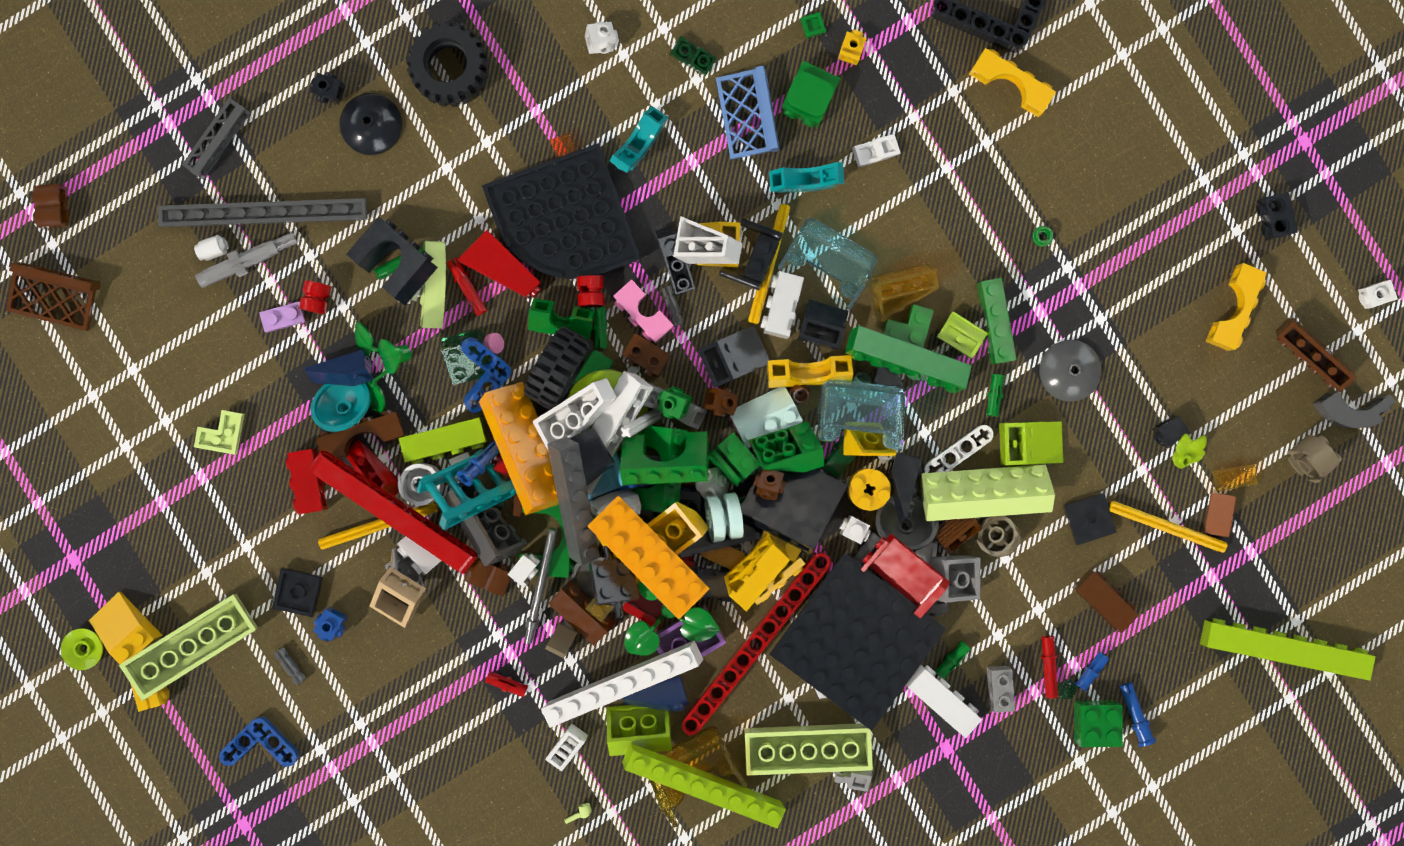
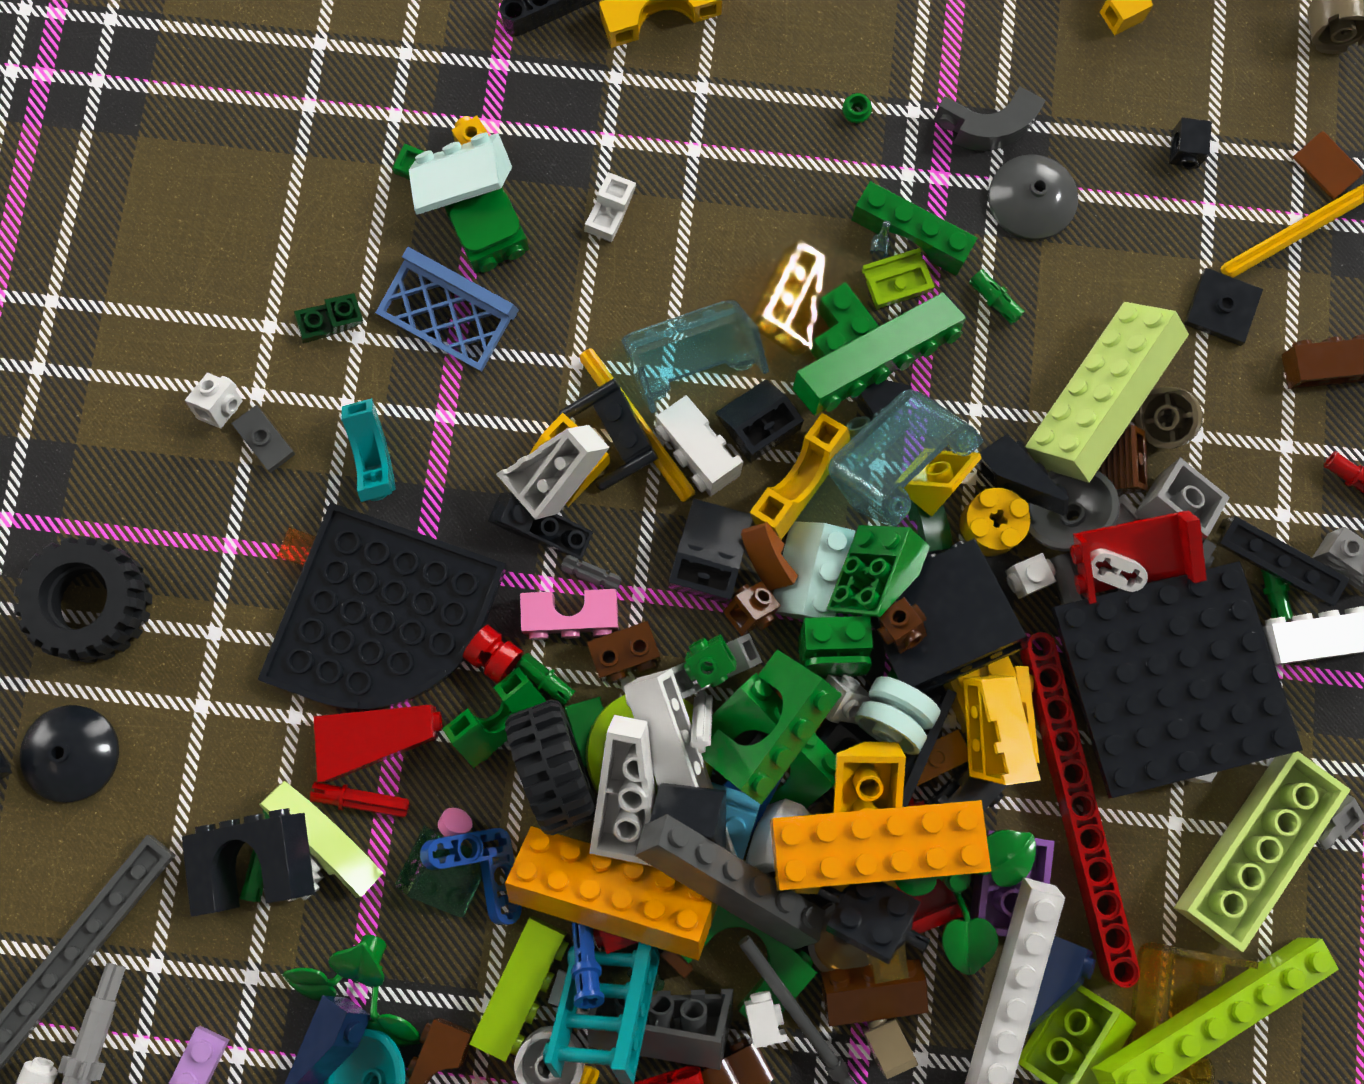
camera: 55 degrees left, 10 degrees down
(315, 297) = (208, 1002): red wheel -> none
(602, 79) = (263, 438): none -> dark grey plate
(754, 384) = (765, 551): none -> dark orange slope
(800, 398) = (823, 509): reddish brown plate -> none
(806, 179) = (579, 302): teal arch -> none
(823, 58) = (458, 172): none -> light aqua slope
(887, 569) = (1118, 563): none -> white beam
(957, 451) = (1029, 389): white beam -> none
(968, 651) = (1282, 560): none -> black fence
(975, 310) = (881, 241): none -> clear light blue hand
(1031, 443) = (1083, 302): lime slope -> none
(1089, 319) = (990, 130): none -> dark grey arch
(1189, 451) = (1229, 141): lime plate -> none
(1235, 477) = (1296, 118): clear yellow slope -> none

